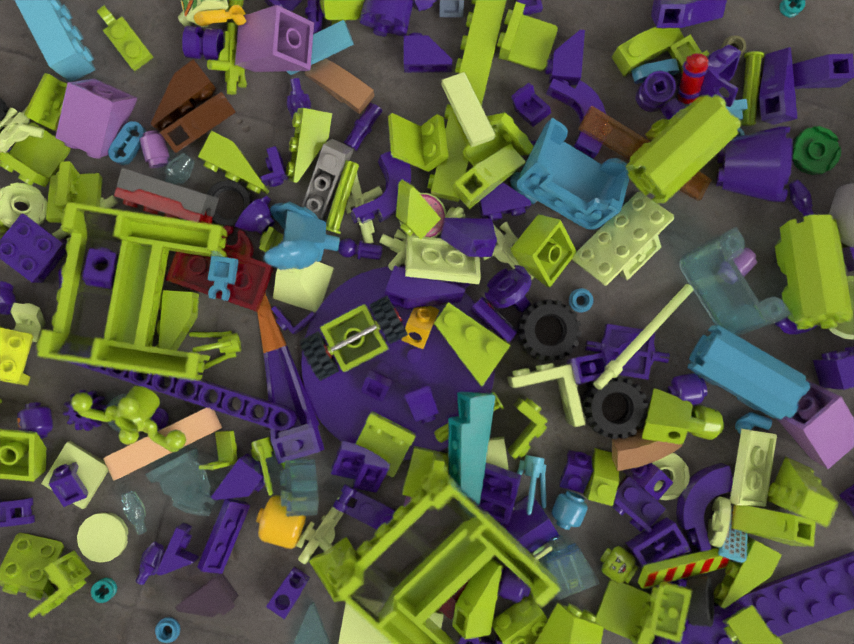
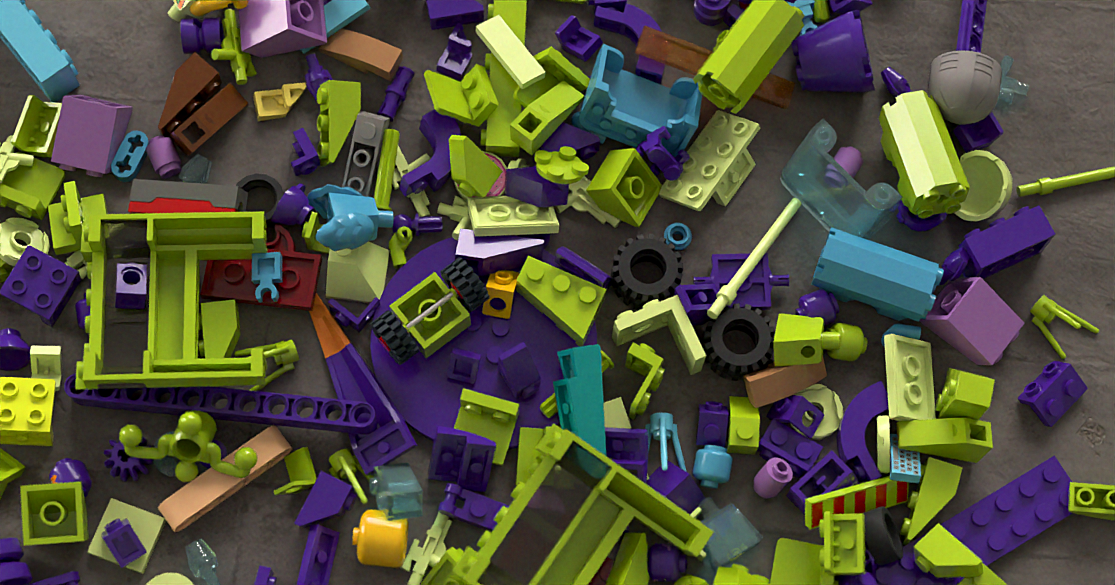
camera: 15 degrees left, 15 degrees down
(125, 39) = (110, 47): lime plate -> none
(184, 483) = (254, 517): clear light blue piece -> none
(226, 156) = (250, 152): lime slope -> none
(260, 116) = (277, 103): none -> light yellow slope
(341, 265) = (398, 245): none -> lime arm
(422, 99) = (456, 55): none -> dark purple slope
(492, 225) = (560, 166): none -> lime piece
(509, 288) = (595, 235): dark purple tile -> none
(585, 234) = (662, 159): none -> dark purple piece
(618, 531) = (772, 478): none -> medium lavender brick
(618, 565) = (782, 518): lime head -> none
(815, 150) = (902, 35): green tile -> none
(818, 374) = (954, 265): none -> dark purple piece

